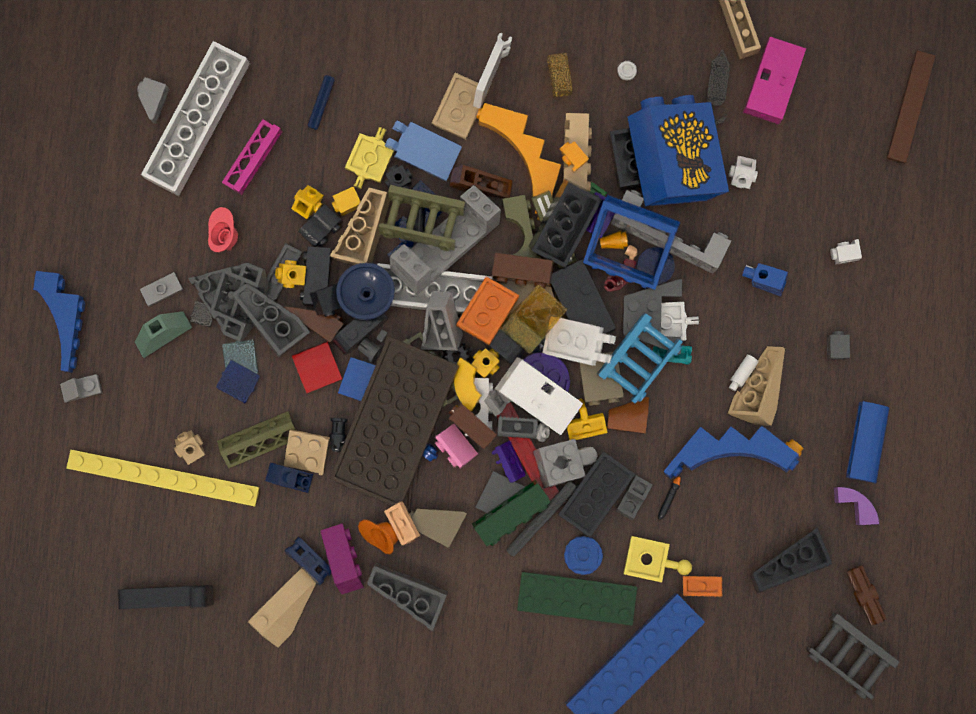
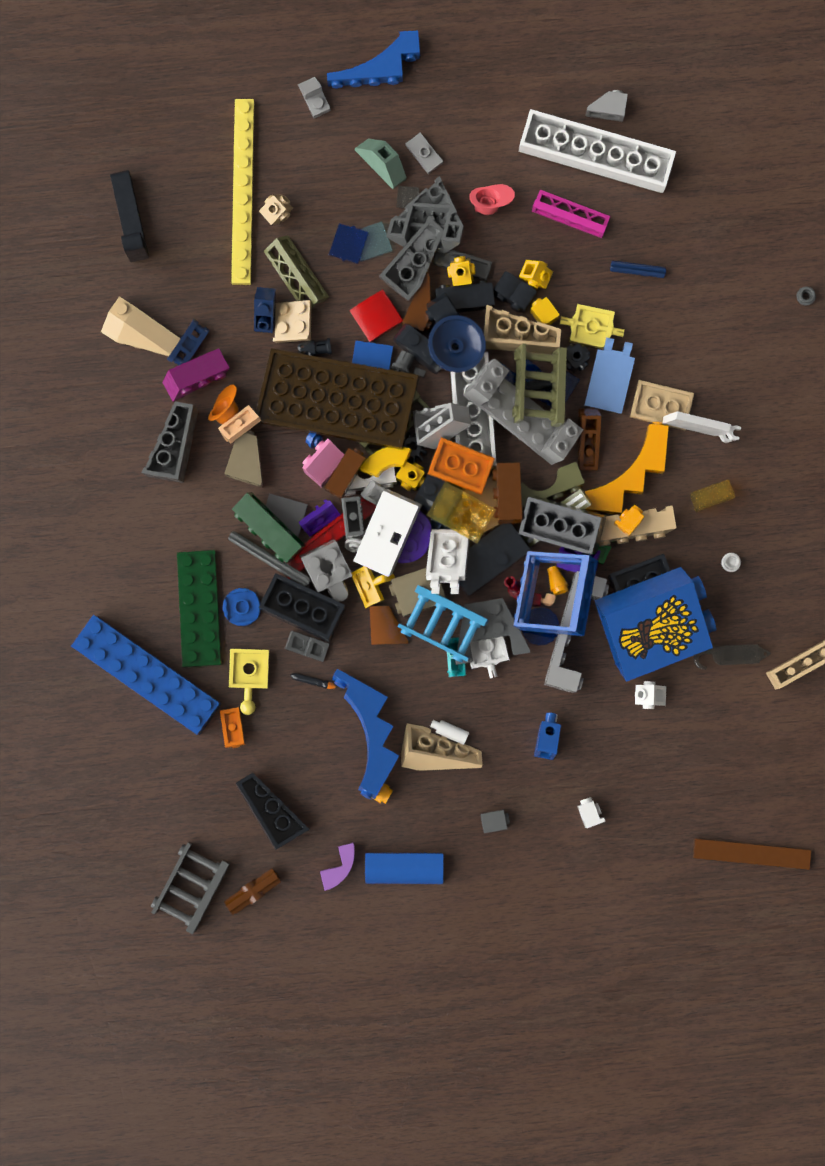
camera: 80 degrees right, 0 degrees up
(774, 80) = (750, 710): dark pink brick -> none

